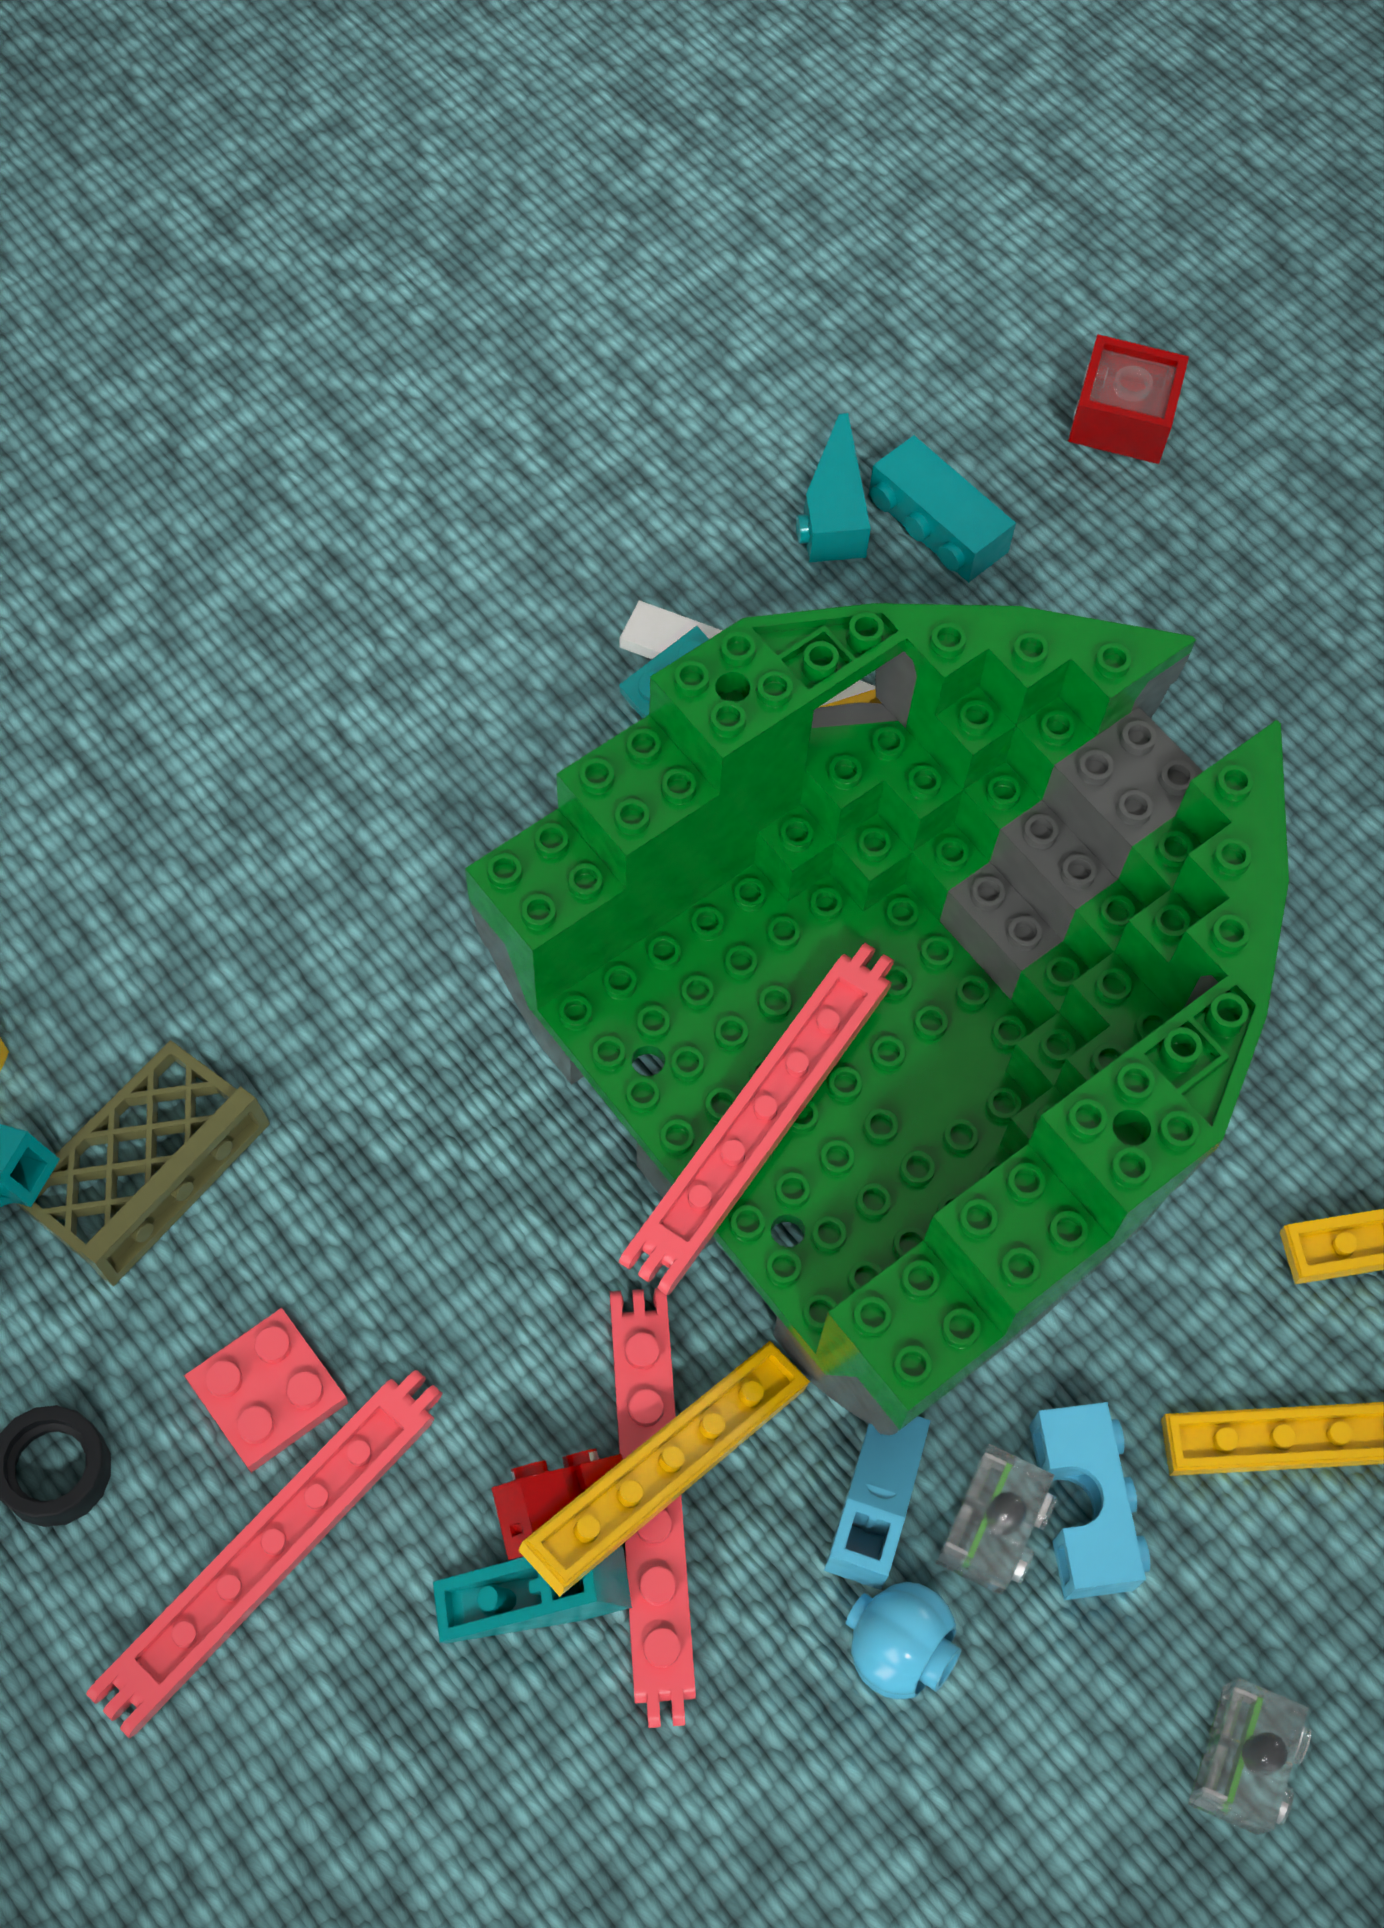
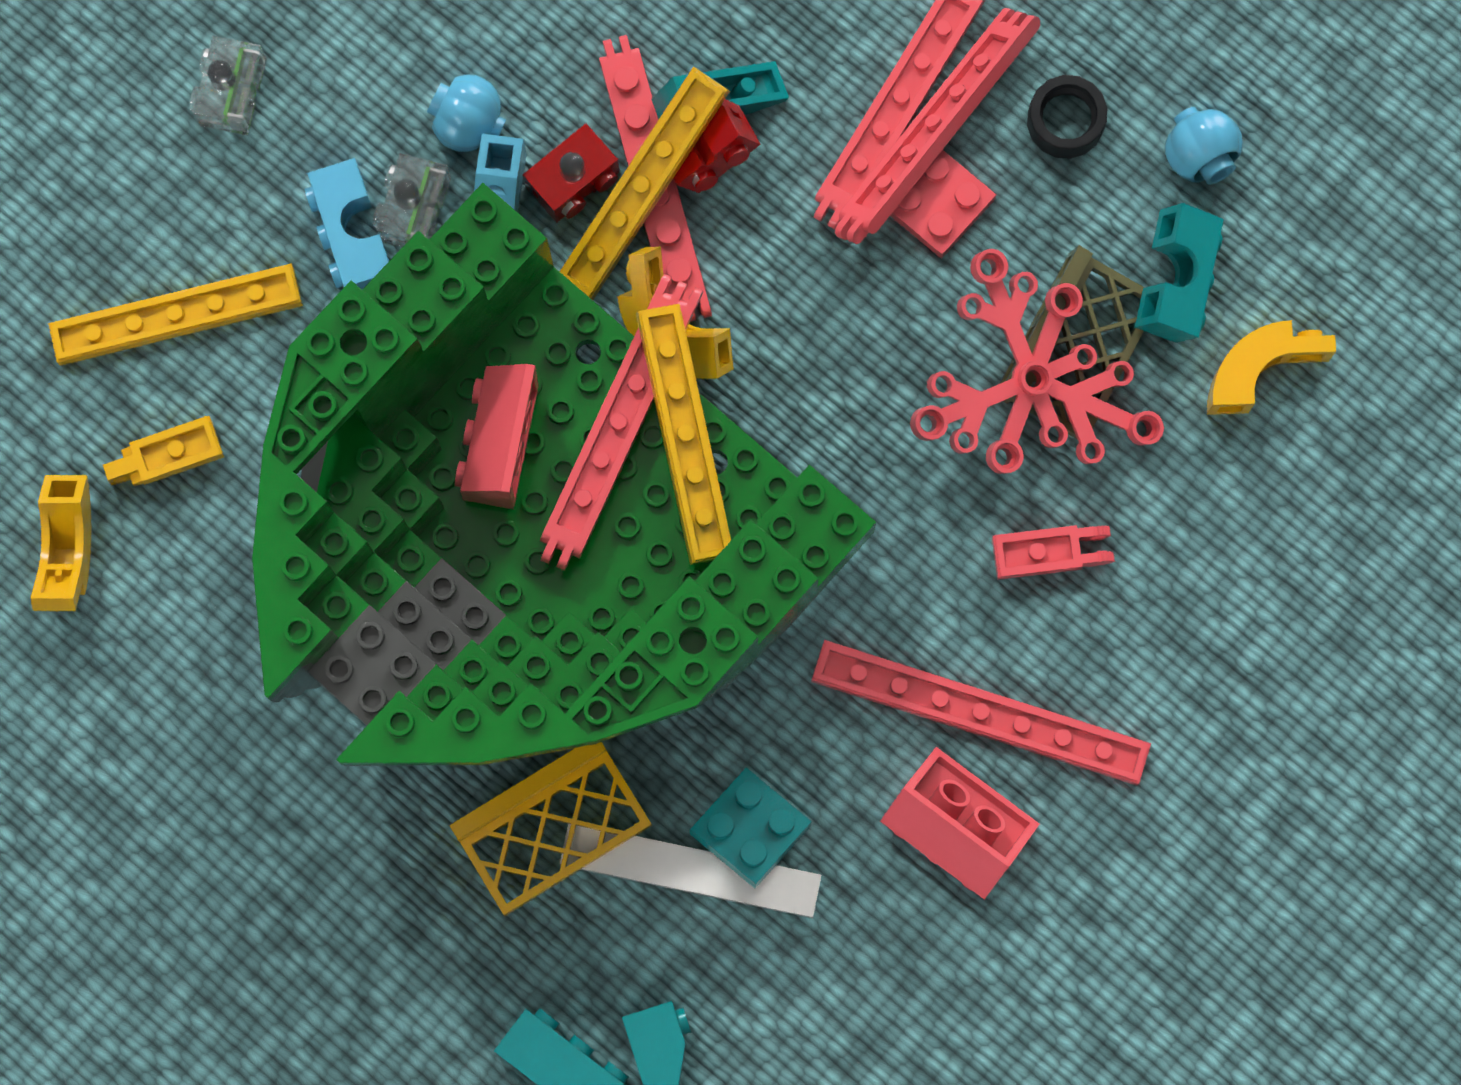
camera: 175 degrees right, 15 degrees up
(211, 1097) = (1077, 398): none -> coral plant
(230, 1485) = (936, 125): none -> coral hinge
(257, 919) = (1047, 551): none -> coral hinge
(370, 758) = (981, 712): none -> coral tile
(449, 656) = (959, 823): none -> coral slope
(682, 1081) = (684, 432): none -> yellow tile
(699, 1300) = (708, 346): none -> yellow arch
(764, 1517) = (572, 173): none -> red piece
(928, 1109) = (498, 435): none -> coral slope

